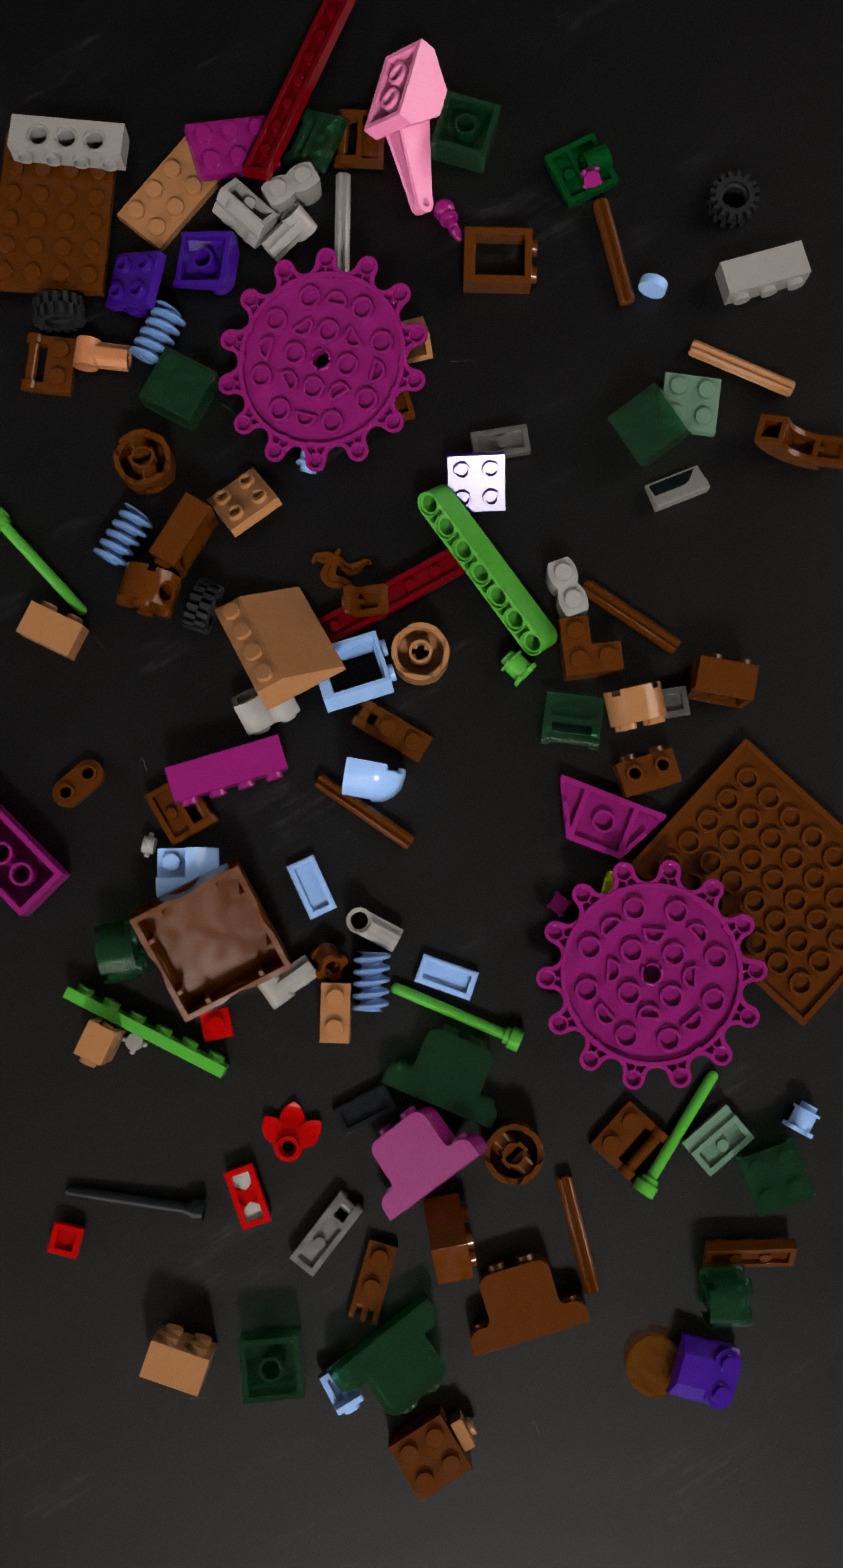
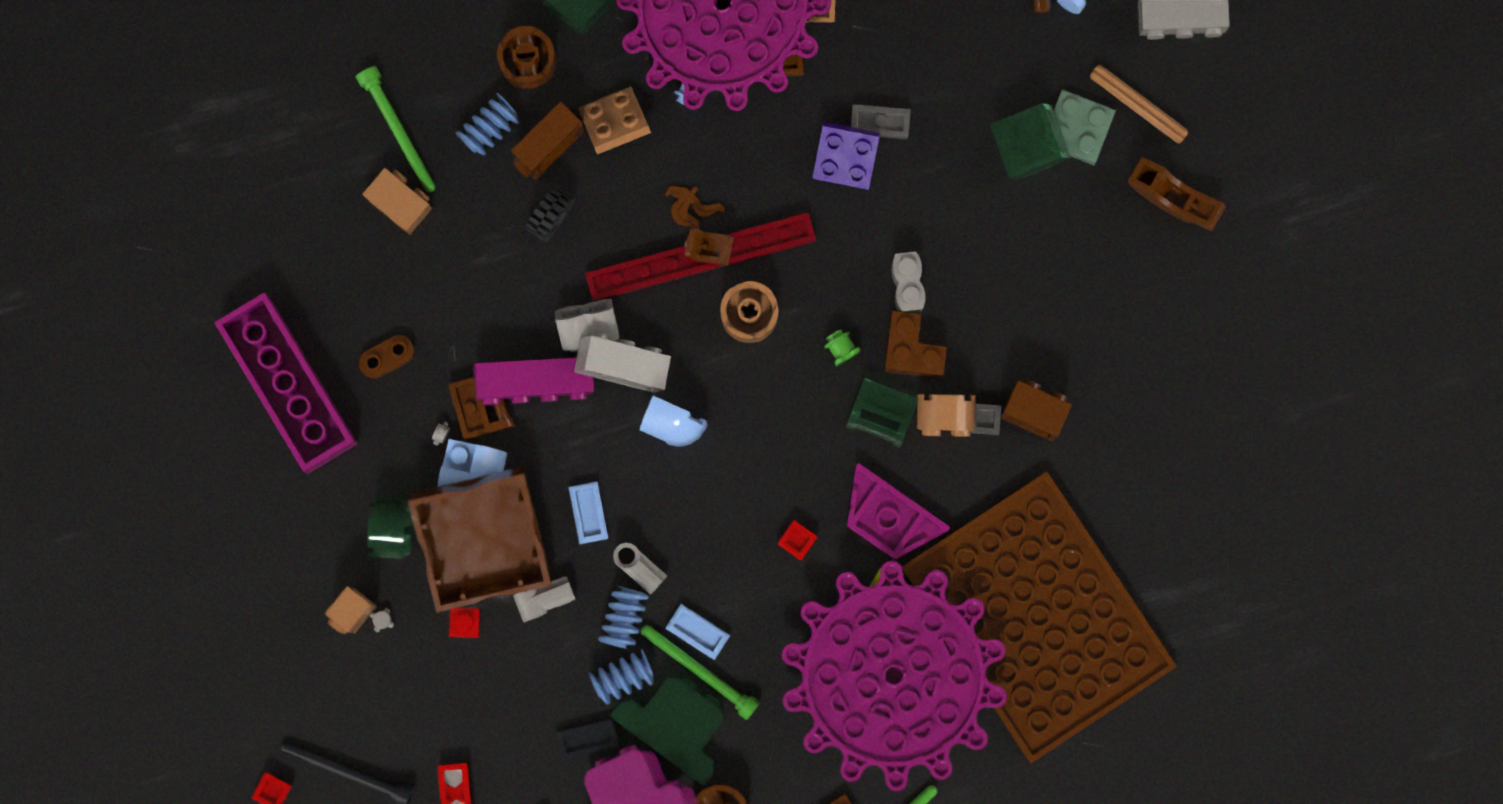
camera: 15 degrees right, 0 degrees up
(135, 1023) = (407, 619): bright green plate -> none
(149, 590) = (501, 185): reddish brown brick -> none
(279, 643) = (615, 268): medium nougat slope -> none
(291, 1127) = (511, 738): red plate -> none
(309, 732) = (622, 362): none -> light grey brick
(328, 962) = (586, 588): reddish brown brick -> none
(335, 1012) = (582, 638): medium nougat brick -> none
(353, 648) = (679, 290): light blue window -> none
(365, 812) = (658, 452): reddish brown axle -> none
(384, 1040) = (622, 677): none -> medium blue piece
(392, 731) = (704, 380): reddish brown plate -> none
(487, 569) = (835, 244): bright green beam -> none
(521, 864) = (797, 540): none -> red plate
(559, 904) = (824, 588): magenta piece -> none
(631, 616) = (965, 324): reddish brown axle -> none
(646, 772) = (941, 481): reddish brown brick -> none
(677, 488) = (1043, 208): light grey slope -> none

